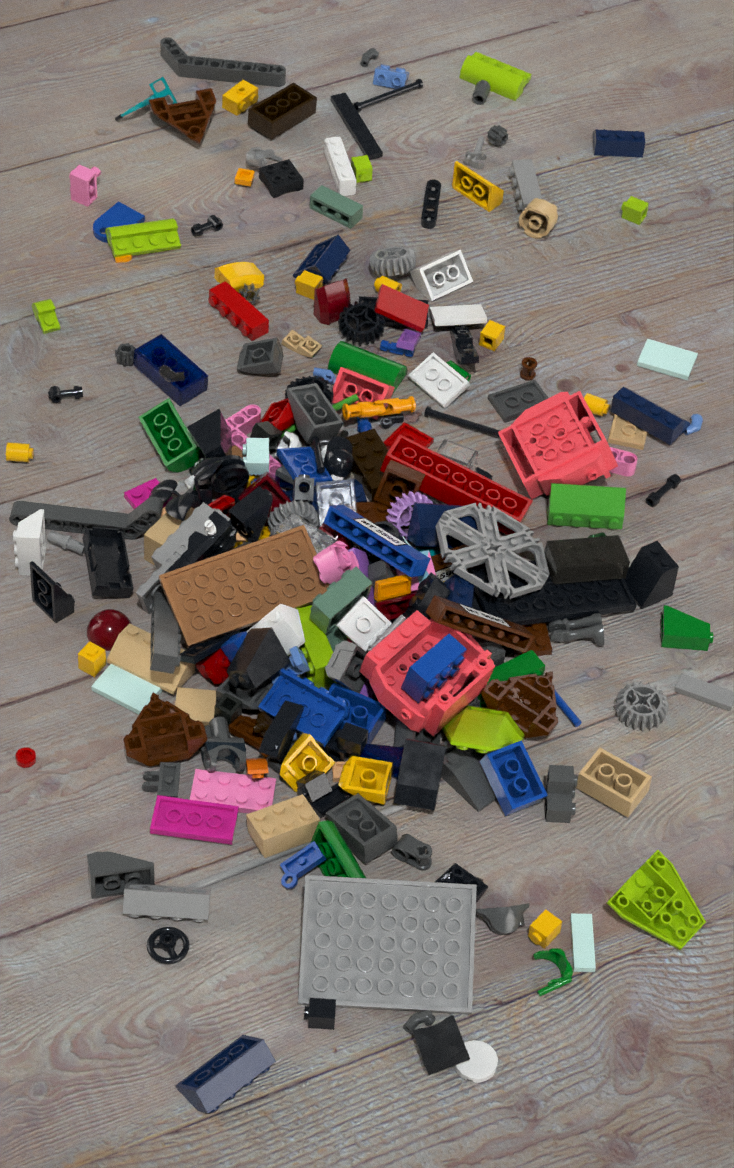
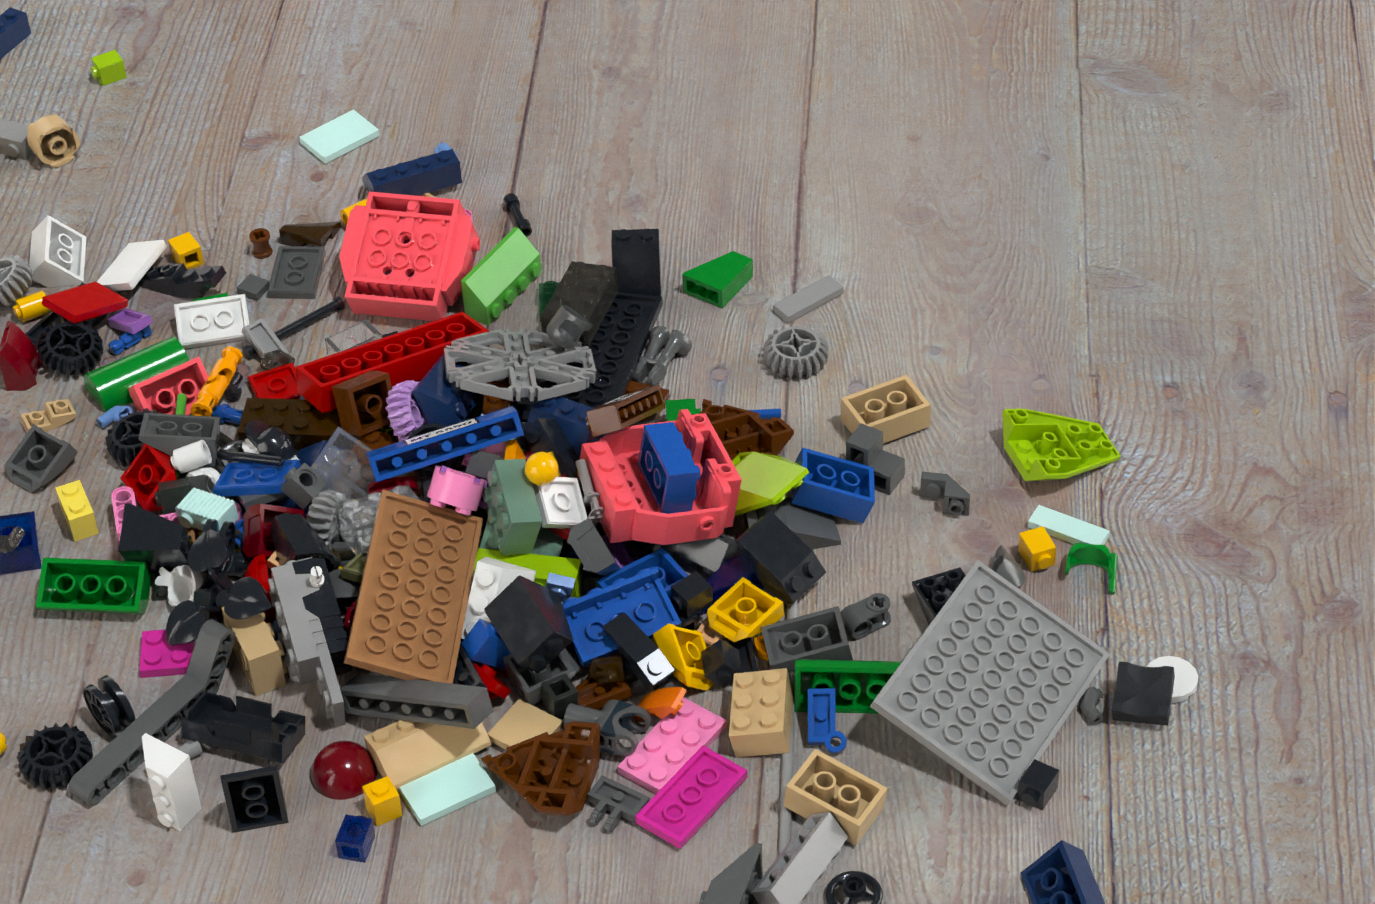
camera: 55 degrees left, 5 degrees down
(33, 485) = (54, 756): none -> black gear
(57, 659) = (355, 838): none -> clear blue brick
(80, 489) = (108, 705): none -> black wheel
(230, 396) = (77, 510): none -> light yellow brick
(233, 897) = (835, 788): none -> tan brick
(295, 424) = (191, 456): none -> white brick
(389, 601) = (542, 468): none -> yellow beam
(429, 427) = (279, 356): none -> clear smoke arm
(438, 415) = (262, 338): none -> light grey tile
(488, 385) = (253, 287): none -> dark grey tile
(543, 558) = (567, 327): none -> dark grey helmet
(555, 384) = (308, 233): none -> dark brown slope
(561, 855) = (944, 487): none -> dark grey slope

